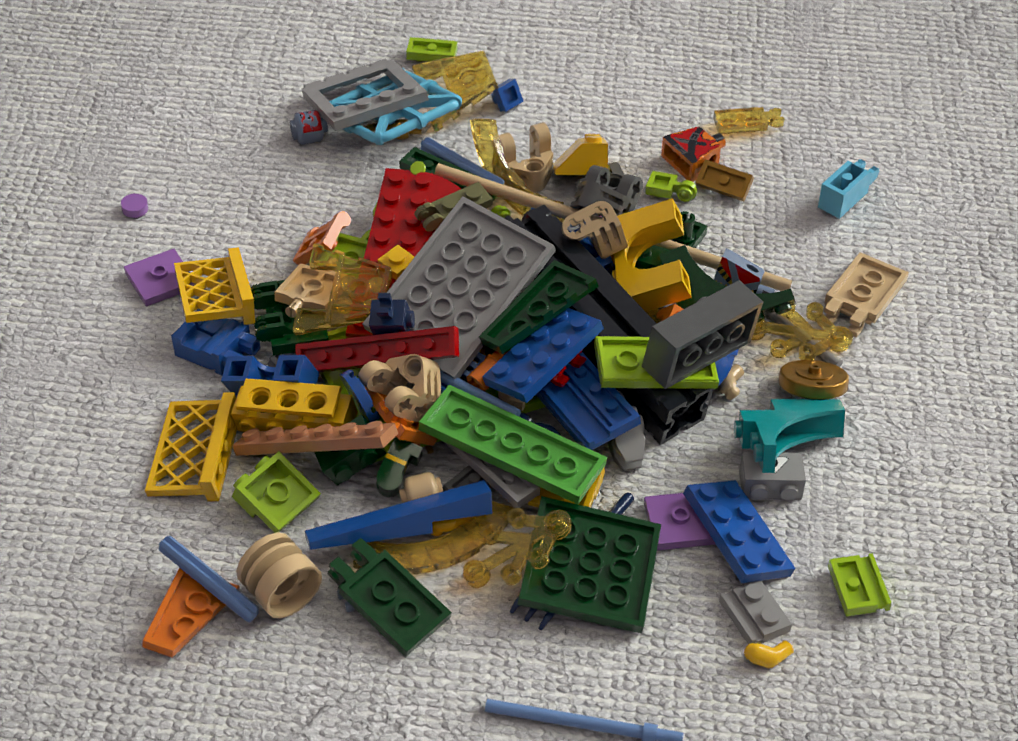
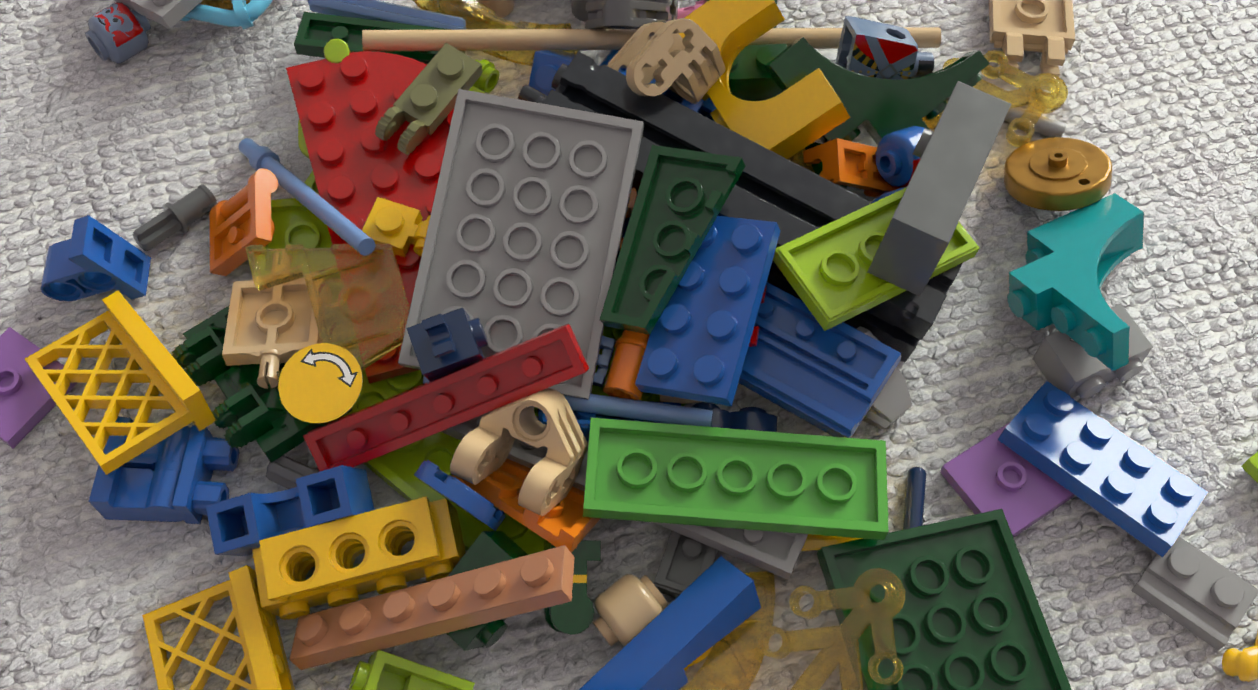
camera: 25 degrees left, 15 degrees up
(233, 230) = (94, 263): none -> blue tile
(287, 227) = (175, 218): none -> dark grey axle
(317, 320) = (320, 383): none -> yellow sticker
(362, 235) = (265, 158): none -> medium blue bar

